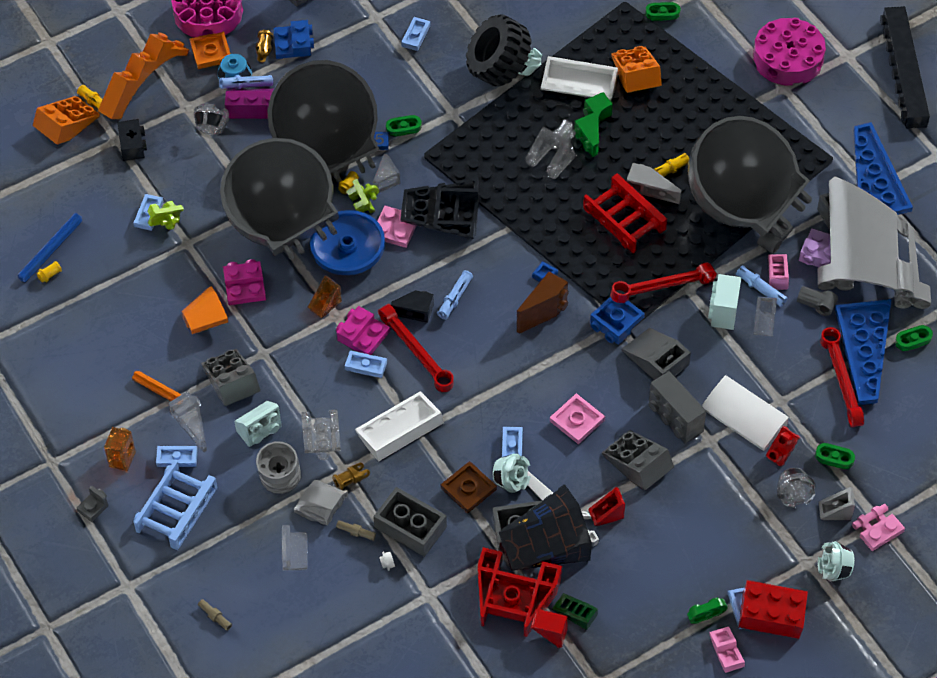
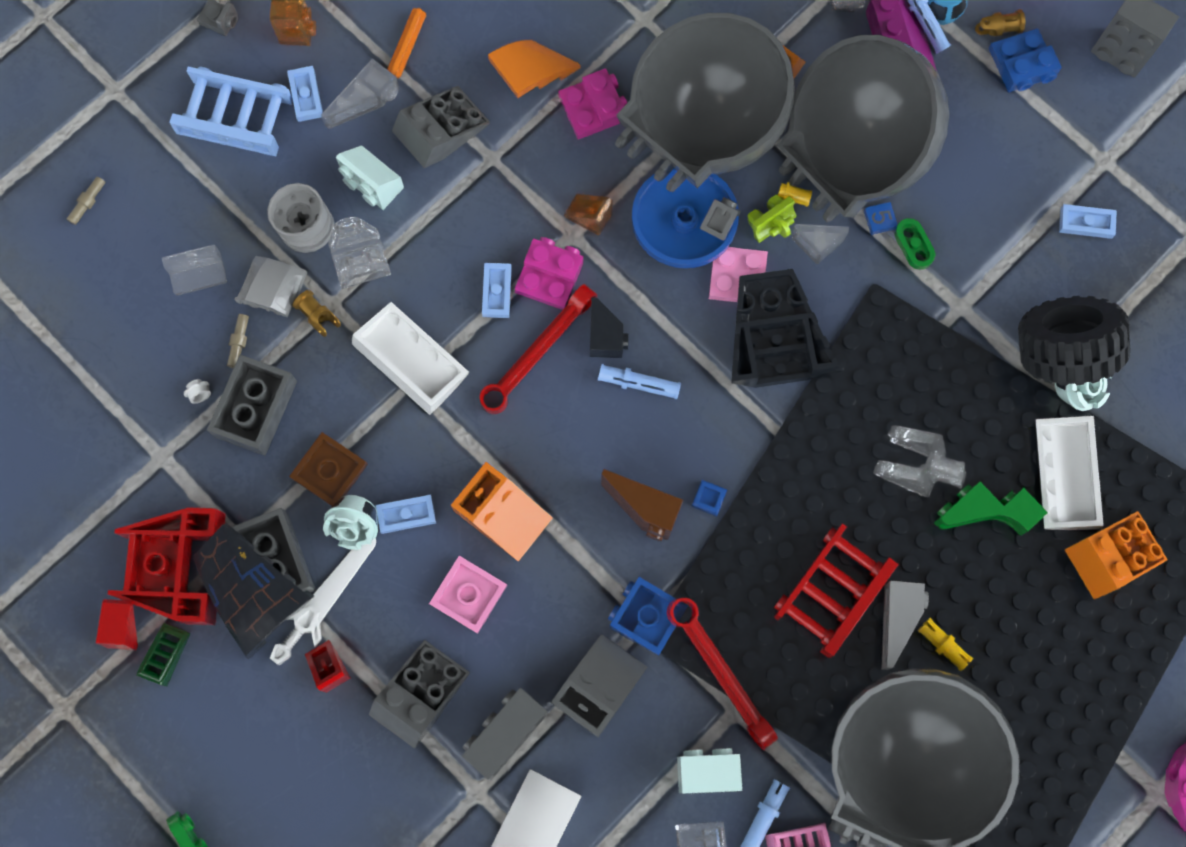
camera: 75 degrees right, 20 degrees up
(359, 217) = (720, 218): none -> dark grey bracket
(523, 388) = (501, 511): none -> slope

